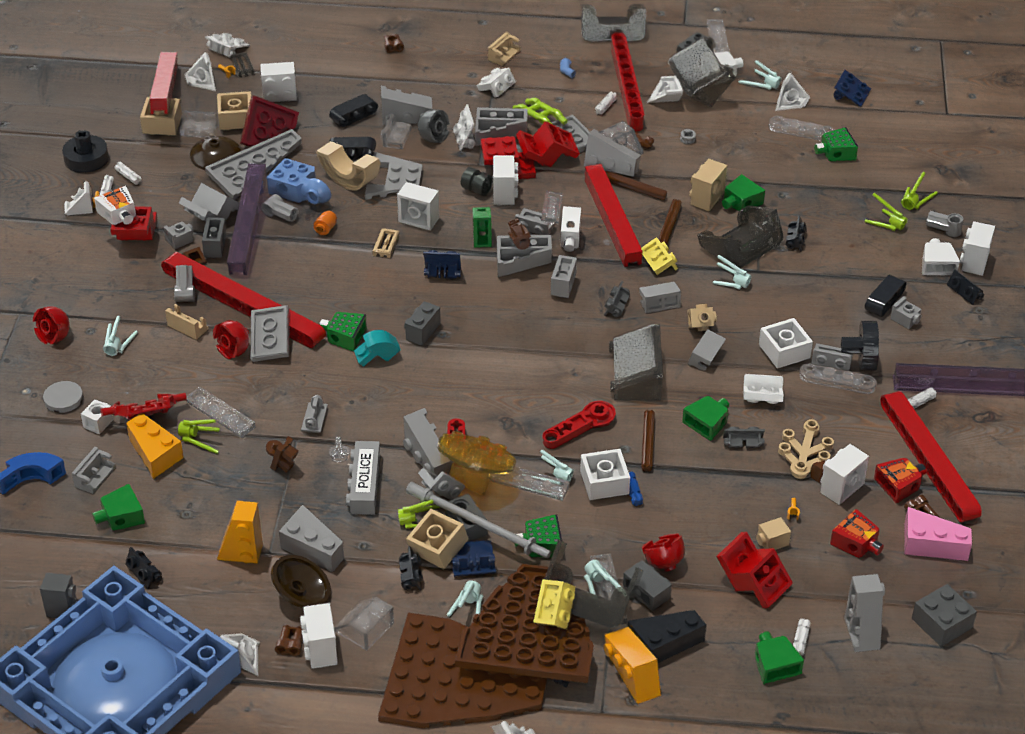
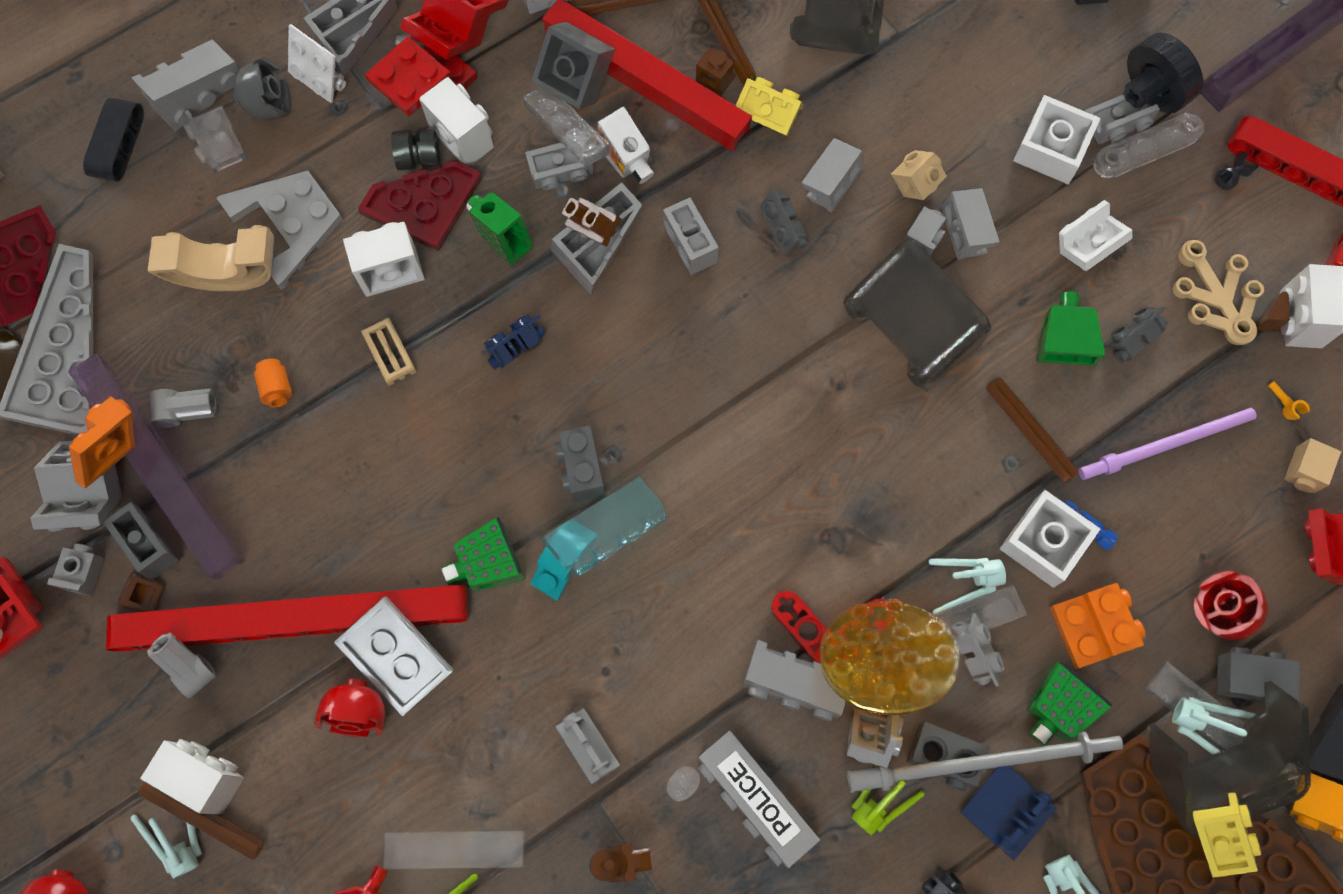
camera: 40 degrees left, 30 degrees up
(135, 338) = (208, 823): none -> reddish brown axle
(149, 317) = (193, 777): none -> white brick
(185, 324) = (247, 726): tan hinge -> none
(235, 183) = (105, 442): none -> orange plate
(297, 183) = (162, 341): medium blue brick -> none
(356, 146) = (181, 212): black beam -> none
(404, 343) = (605, 527): none -> clear light blue windscreen
(437, 538) = (959, 834): tan brick -> none
(458, 203) = (424, 201): none -> dark red plate
(526, 483) = (977, 639): none -> light grey hinge
(578, 187) = (572, 64): none -> dark grey brick
(580, 423) = (932, 464): red beam -> none
(594, 524) = (1098, 625): none -> orange plate
(645, 229) = (718, 66): none -> reddish brown brick
(673, 475) = (1112, 463): none -> lavender bar
(679, 340) = (927, 230): none -> light grey brick
(740, 277) = (899, 66): light aqua plant -> none
(864, 411) = (1229, 177): none -> black arm
(922, 397) = (1267, 101): white axle -> none

